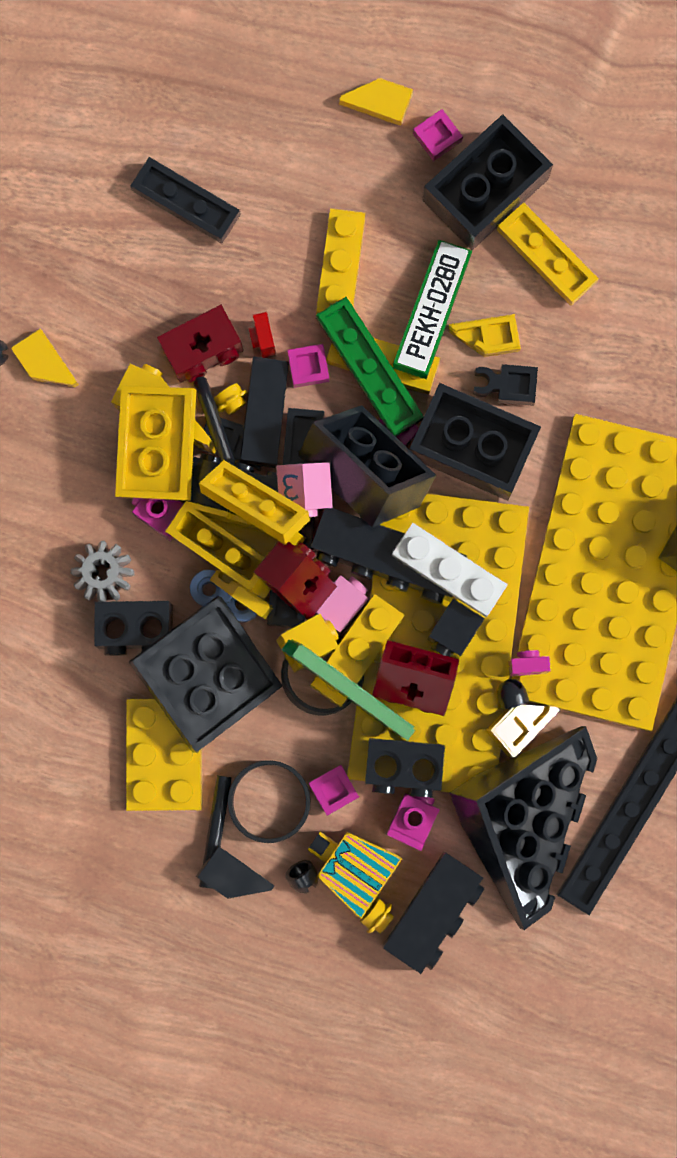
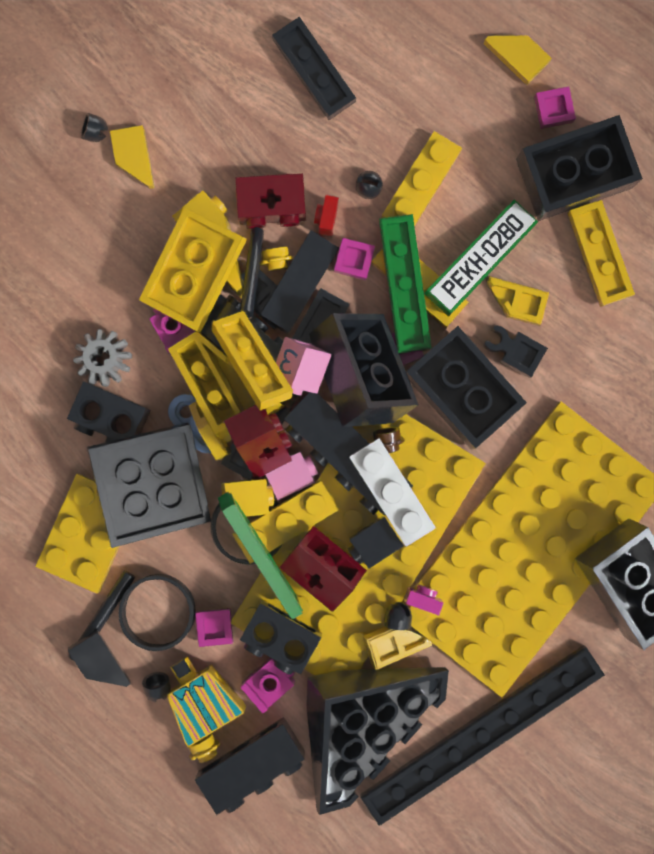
camera: 20 degrees right, 5 degrees up
(290, 294) = (367, 190): none -> black hinge
(424, 520) = (390, 438): none -> reddish brown plate

